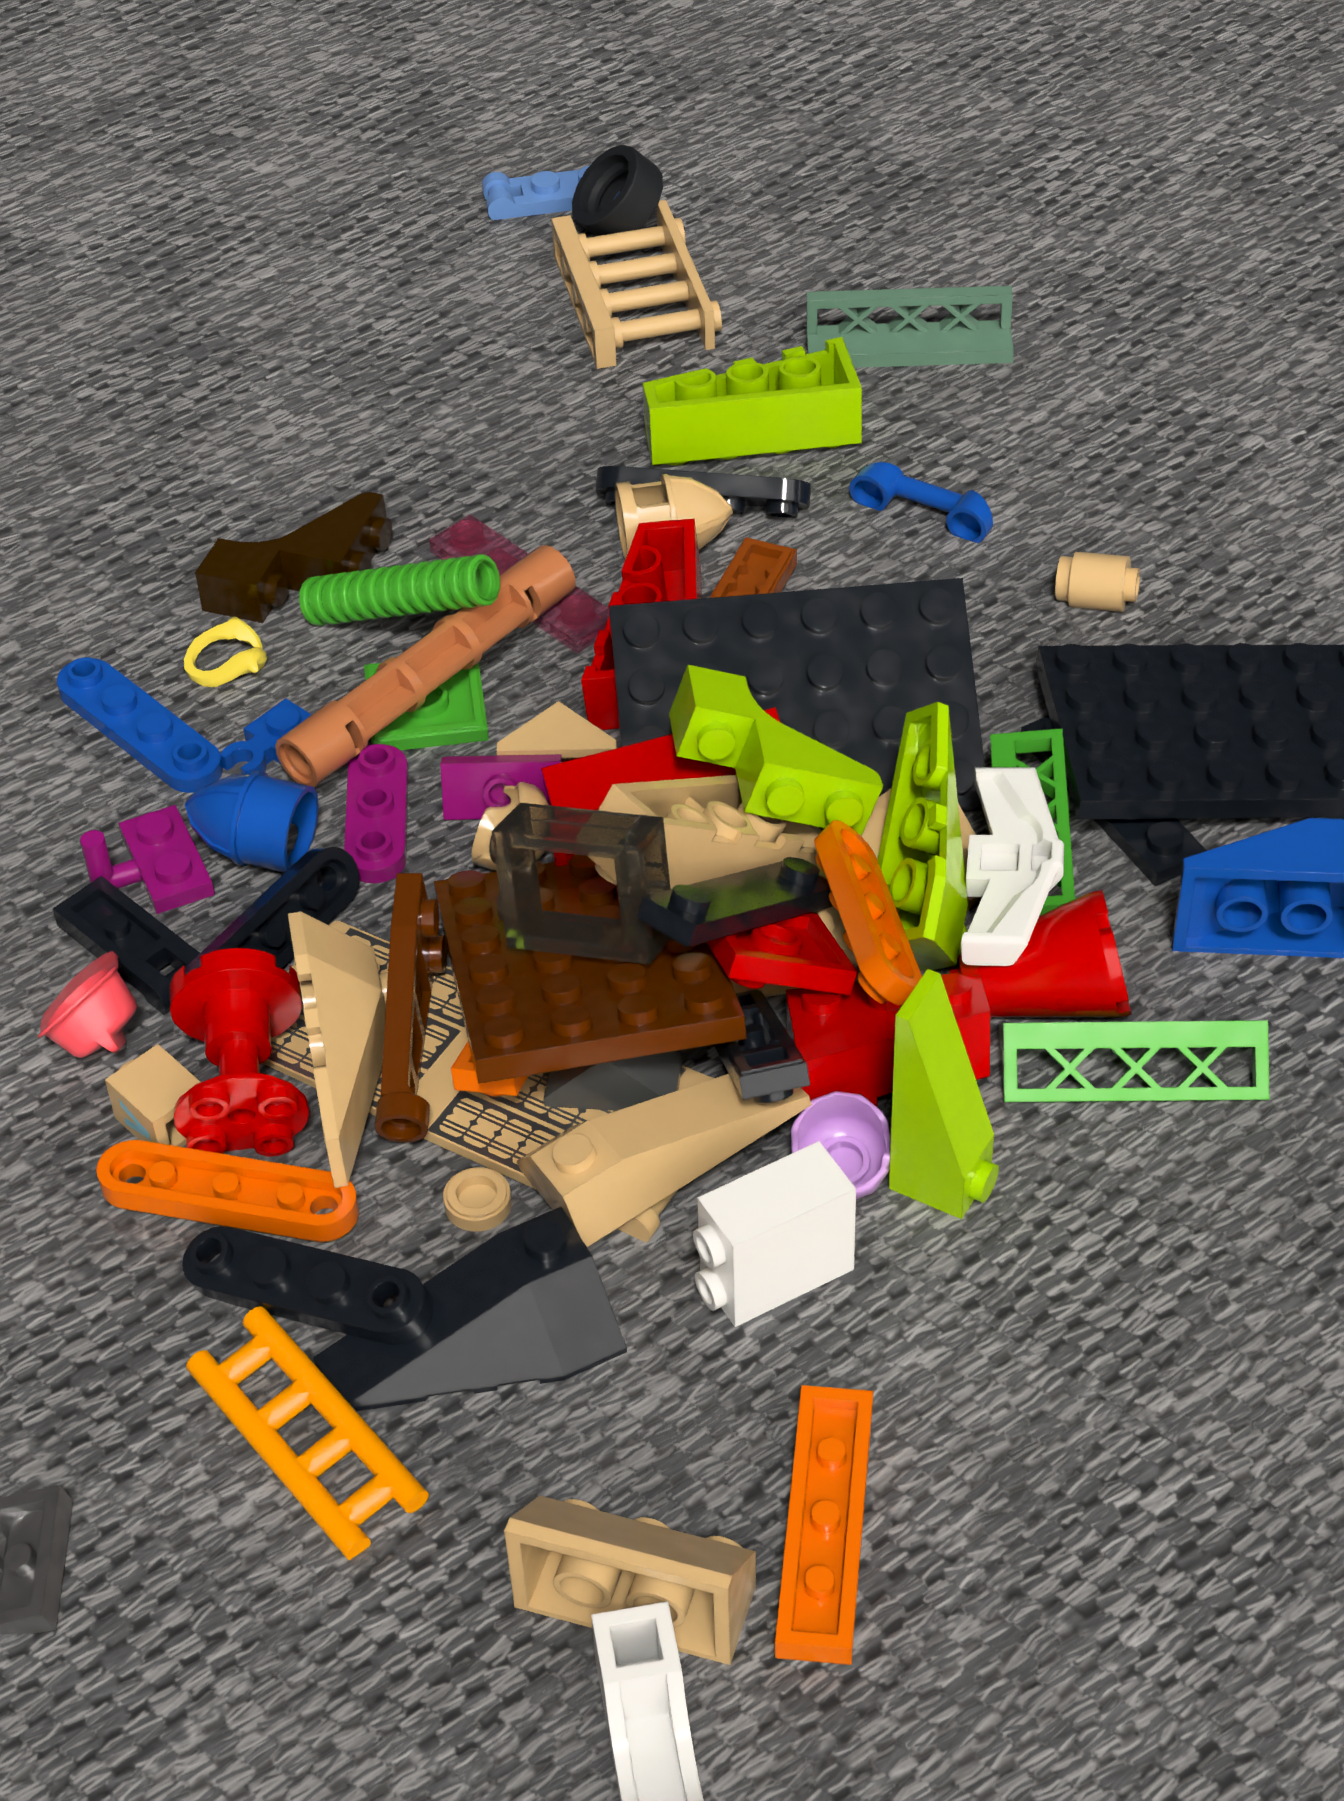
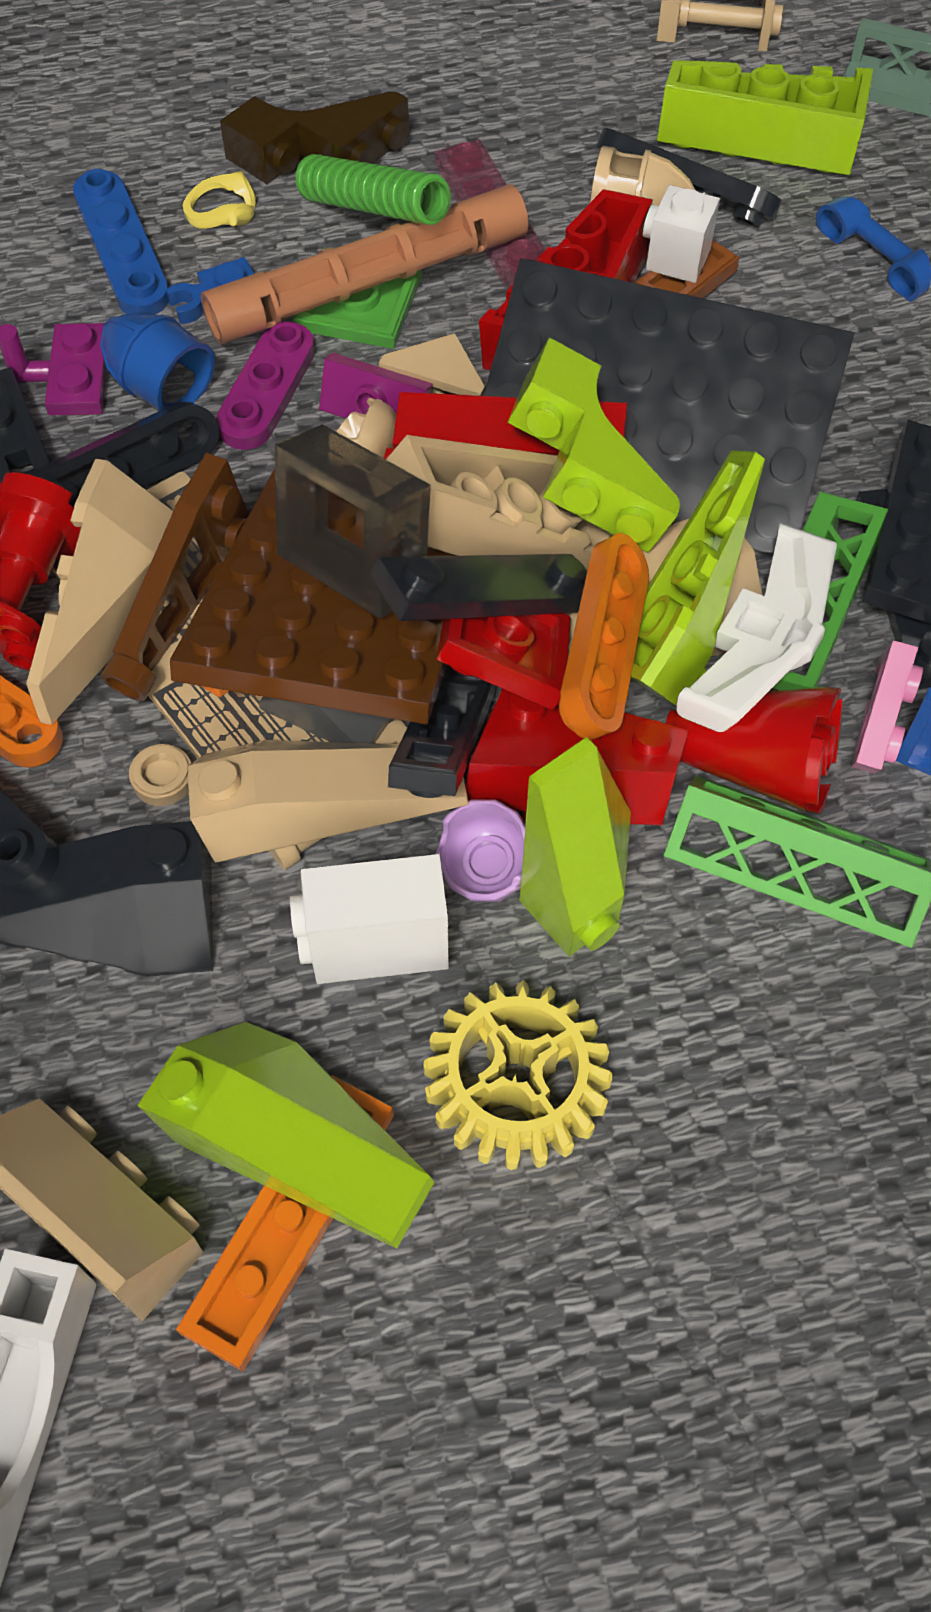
camera: 20 degrees right, 15 degrees up
(735, 542) = (680, 233): none -> white brick
(787, 1439) = (289, 1126): none -> lime wedge
(980, 1343) = (559, 1040): none -> light yellow gear
(1145, 874) = (896, 682): none -> bright pink wing

